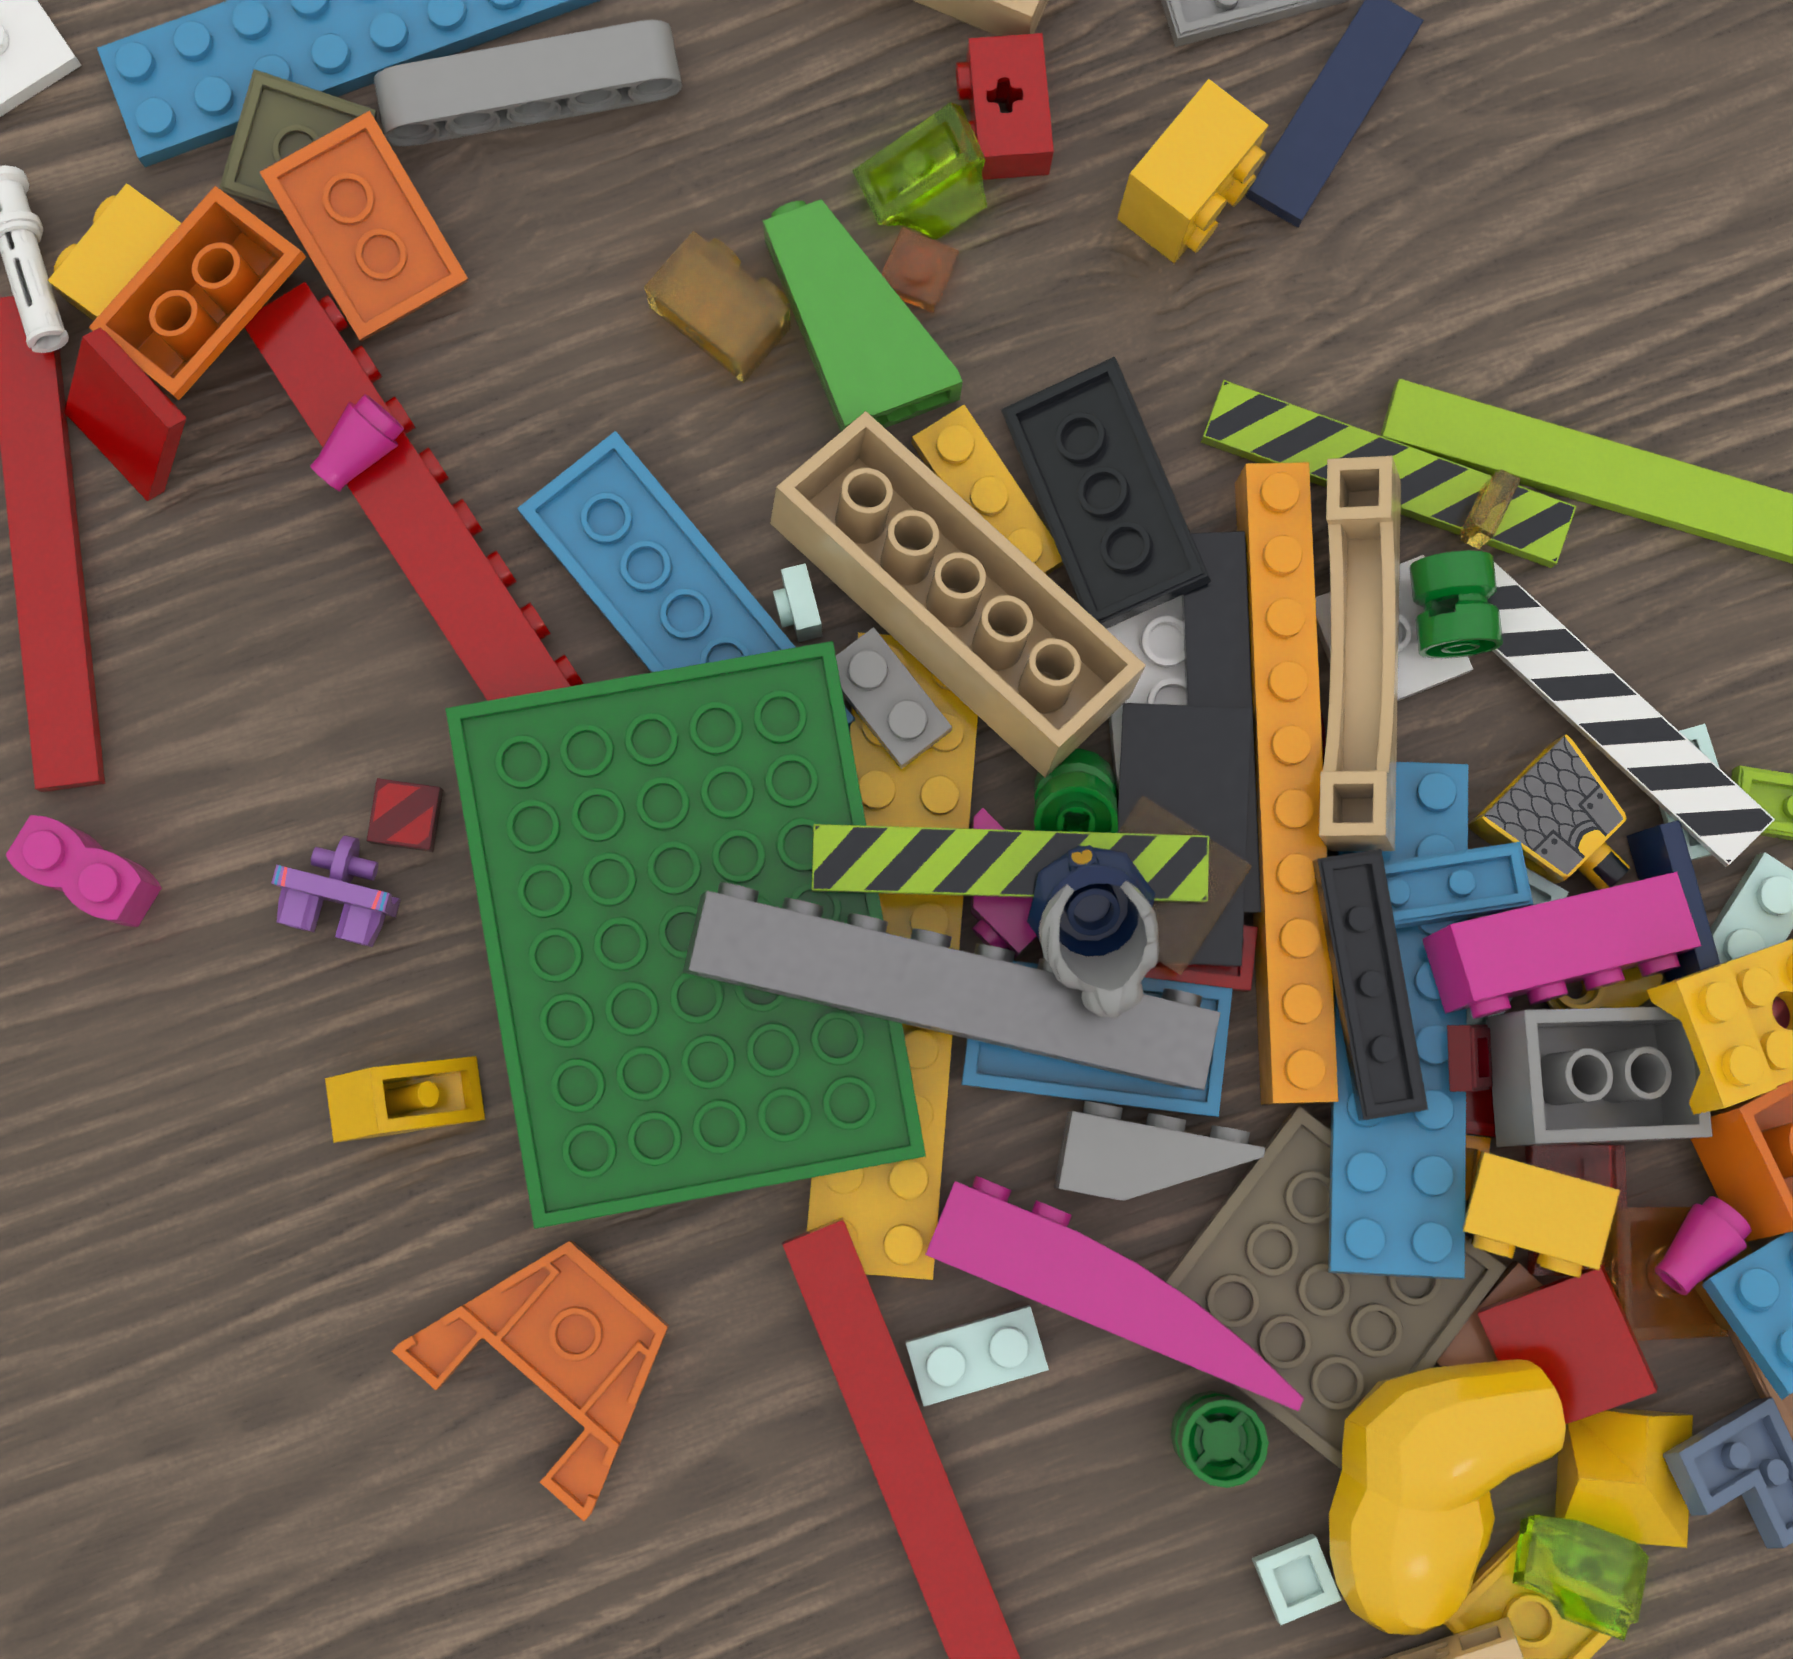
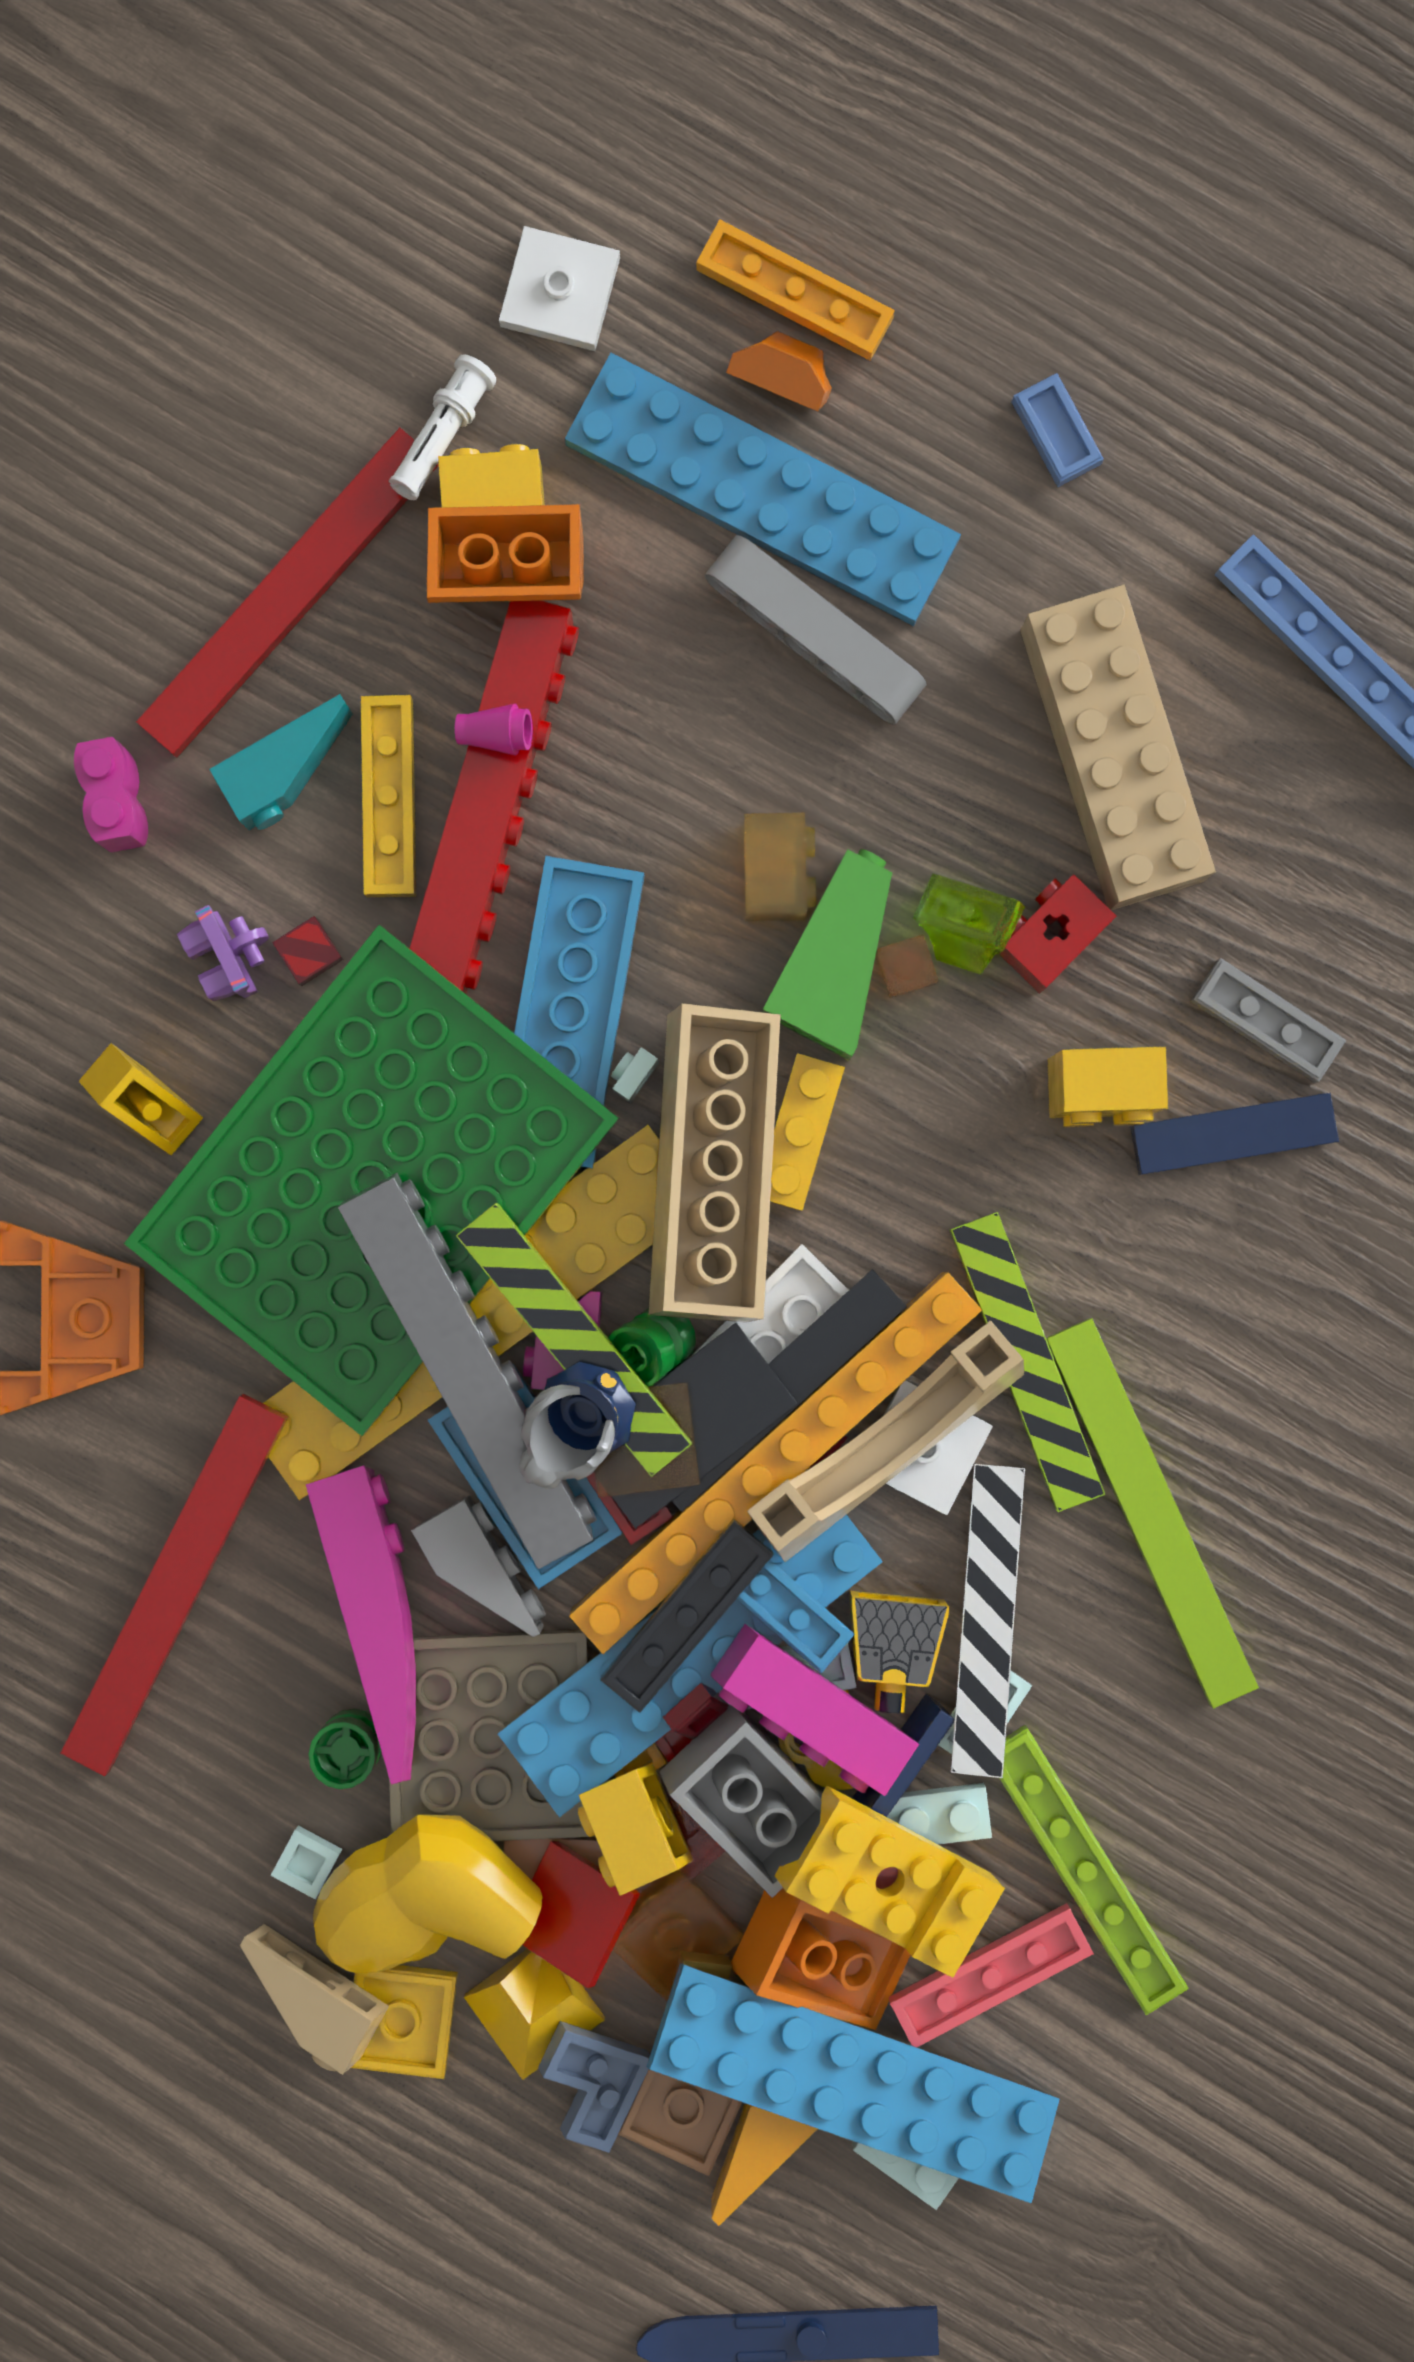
camera: 60 degrees right, 5 degrees up
(124, 413) = (397, 574): red tile -> none
(202, 697) = (275, 769): none -> teal slope
(272, 125) = (650, 530): olive tile -> none
(326, 609) = (388, 796): none -> yellow plate
(364, 226) = (637, 612): orange plate -> none
(889, 699) = (619, 1178): light grey plate -> none
(976, 1355) = (278, 1563): light aqua plate -> none
(1105, 495) = (858, 1202): black tile -> none
(1460, 583) = (971, 1473): green wheel -> none
(1489, 509) = (1051, 1443): clear yellow tile -> none
(1583, 1572) = (448, 2031): clear neon green slope -> none
(1703, 1244) = (703, 1944): dark pink cone -> none

